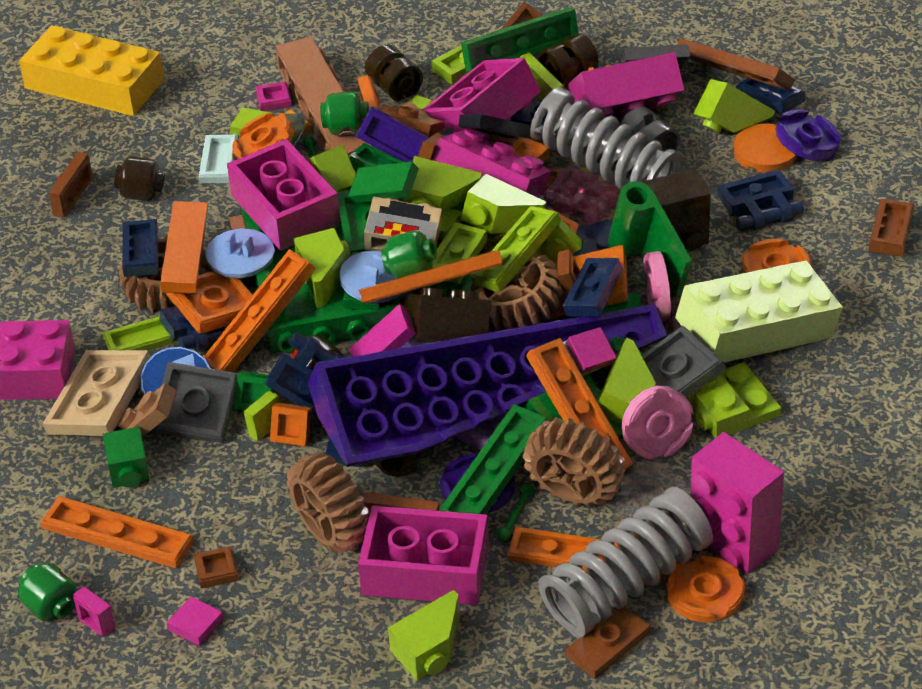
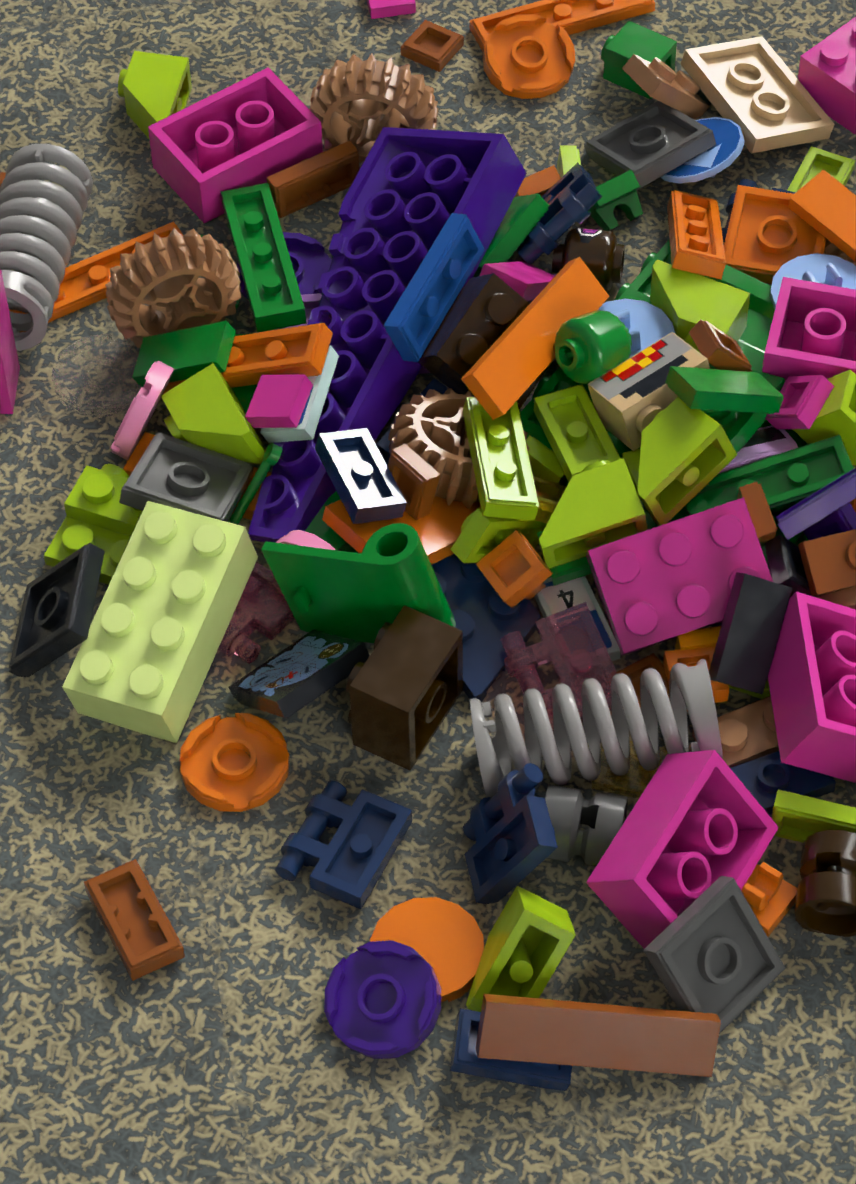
camera: 135 degrees right, 10 degrees up
(178, 510) = (528, 57): none -> orange tile
(342, 174) = (801, 402): none -> dark pink tile
(350, 216) = (719, 348): none -> dark orange tile
(448, 330) = (434, 287): none -> blue tile
(598, 414) = (186, 351): none -> green tile
(695, 133) = (510, 835): none -> dark blue plate
(714, 250) = (299, 673): none -> tile
(807, 356) = (56, 611): none -> black tile

